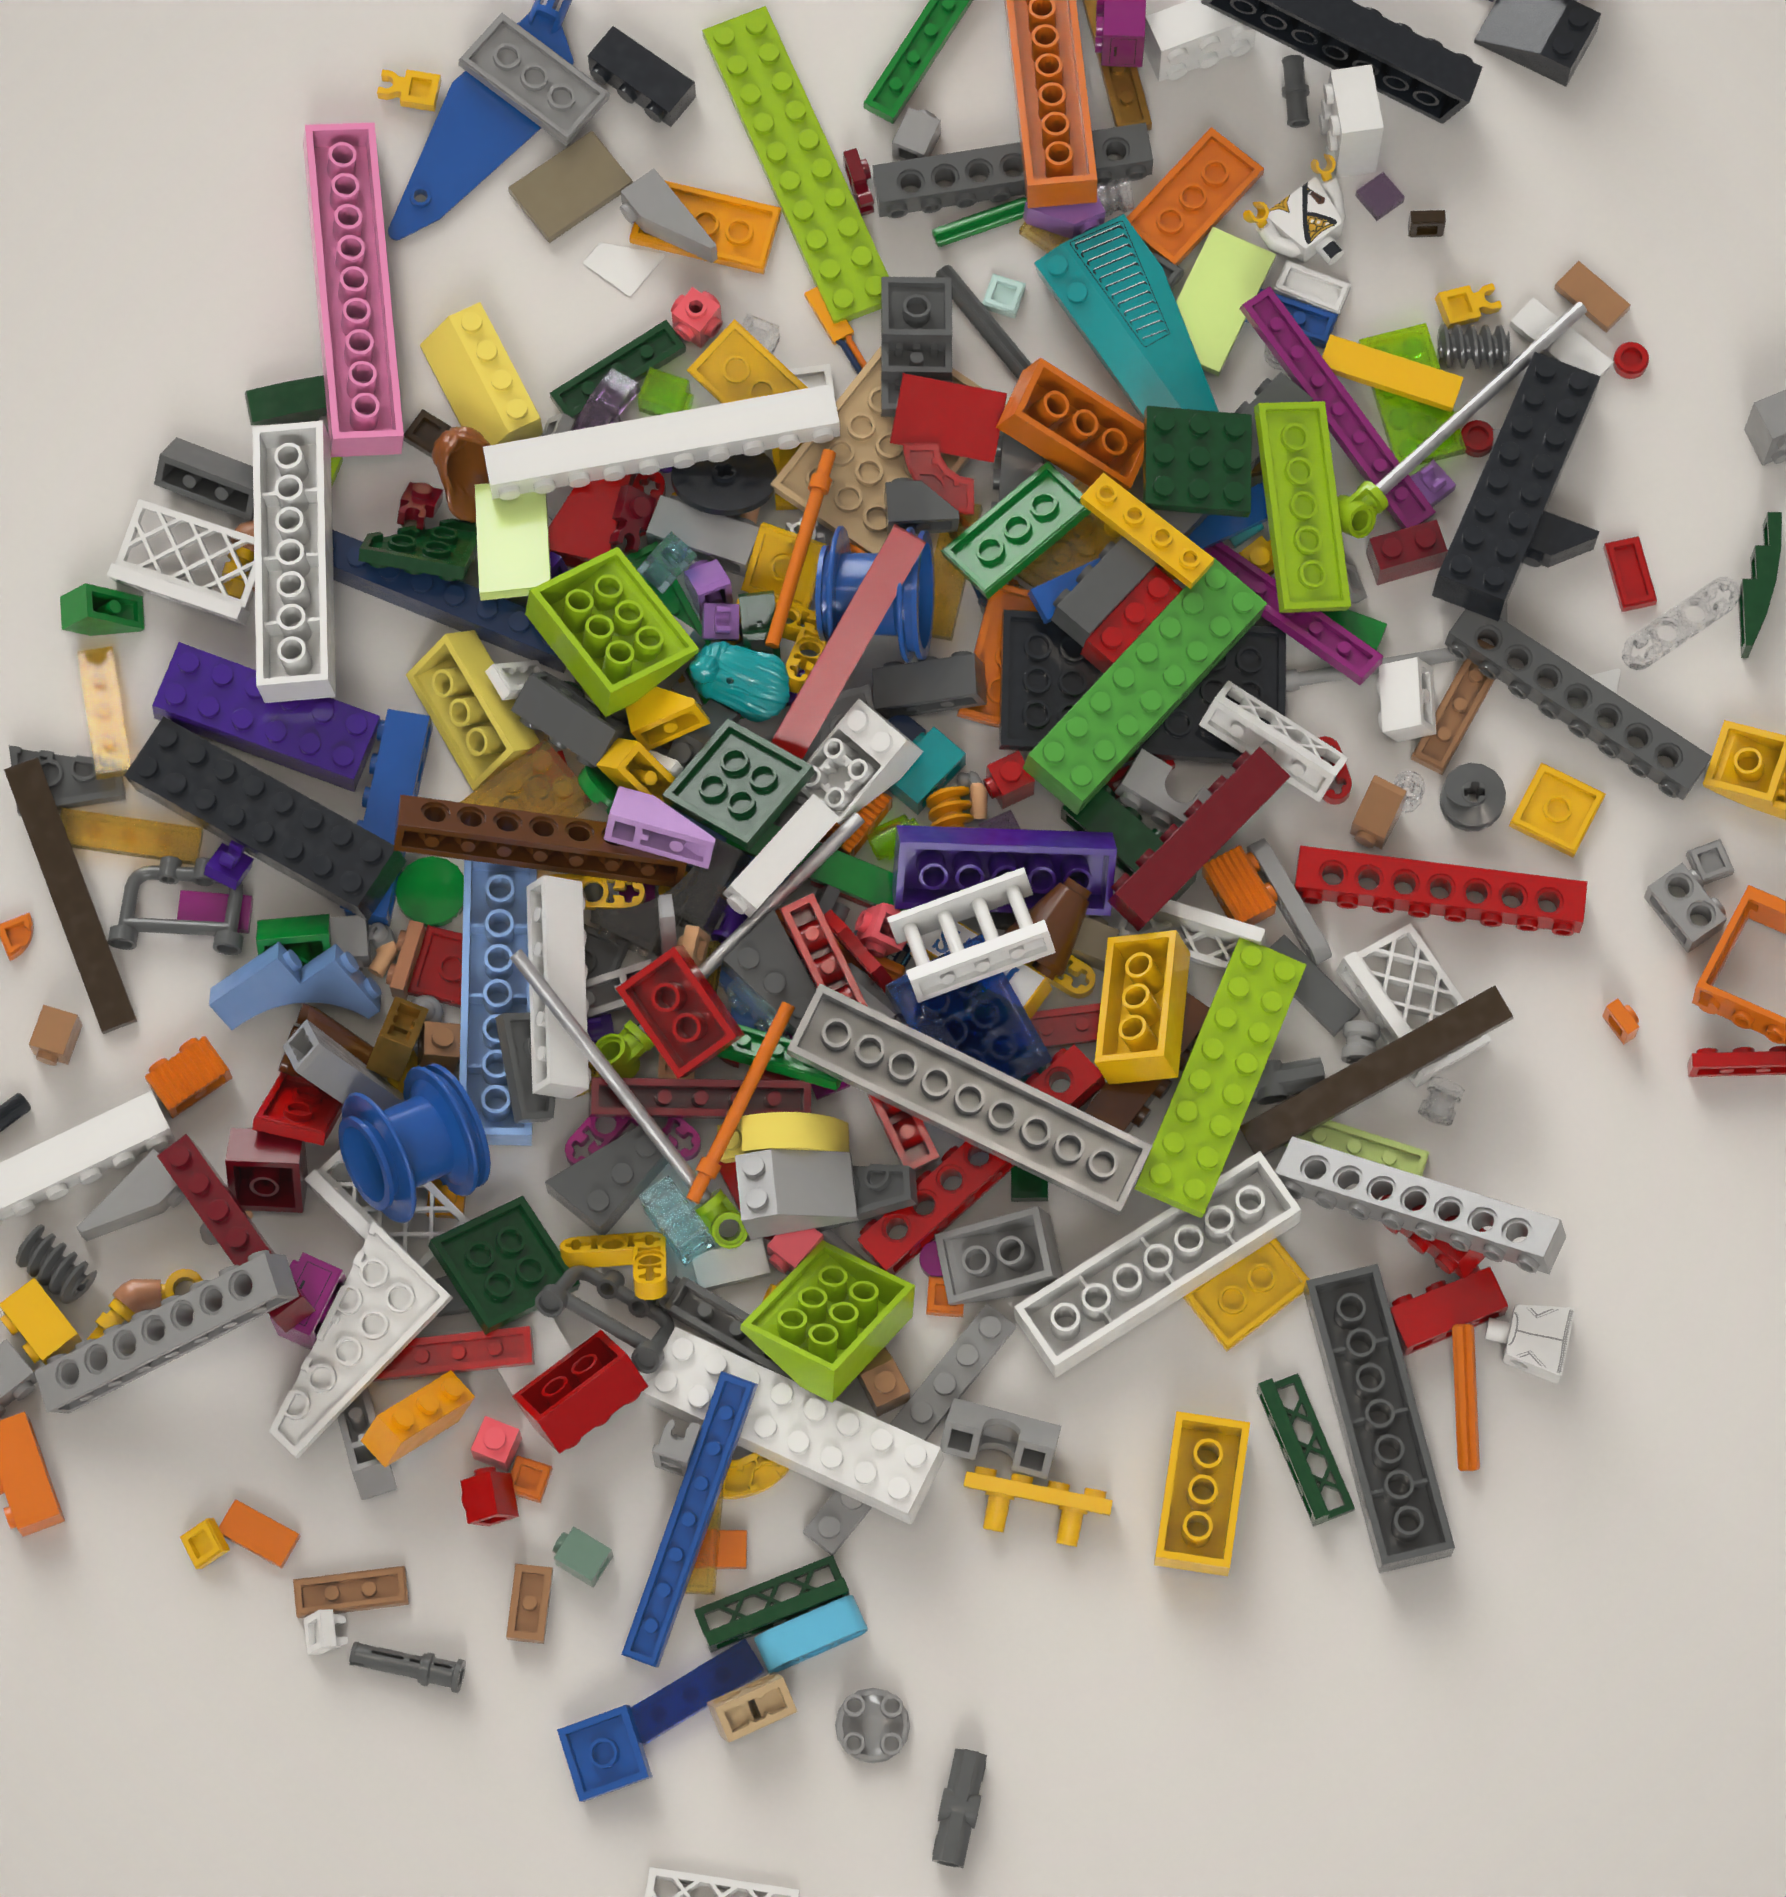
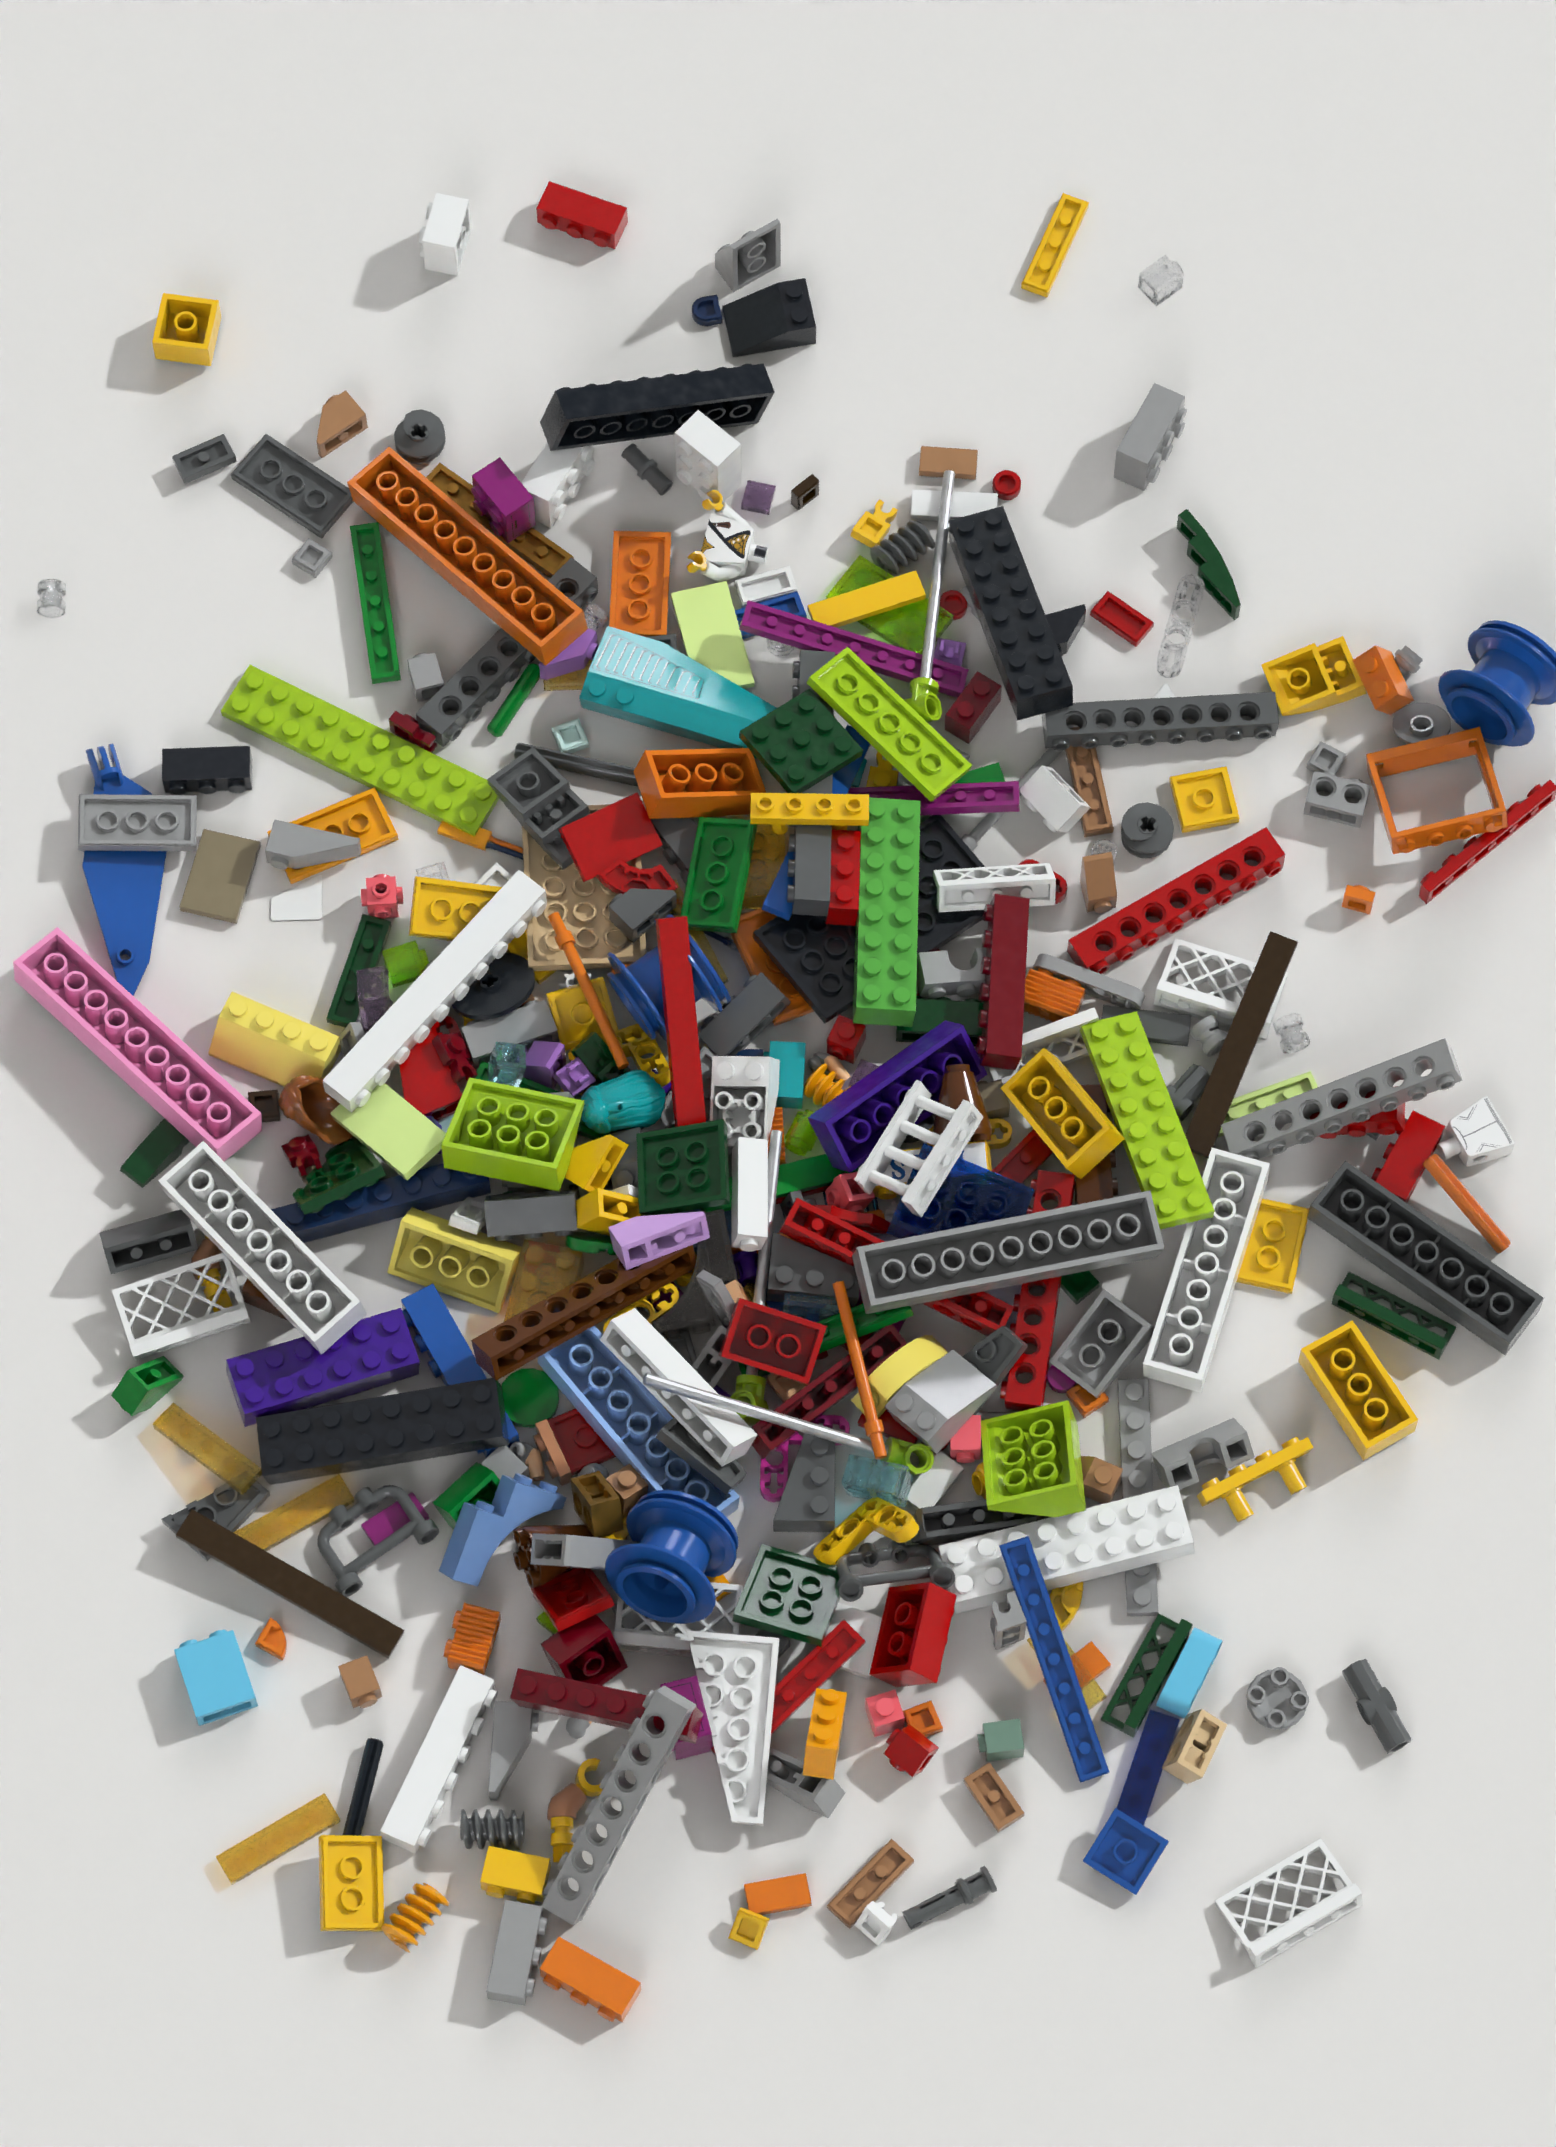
camera: 40 degrees left, 5 degrees down
(229, 865) = (383, 1480): dark purple tile -> none
(415, 90) = (59, 888): yellow plate -> none

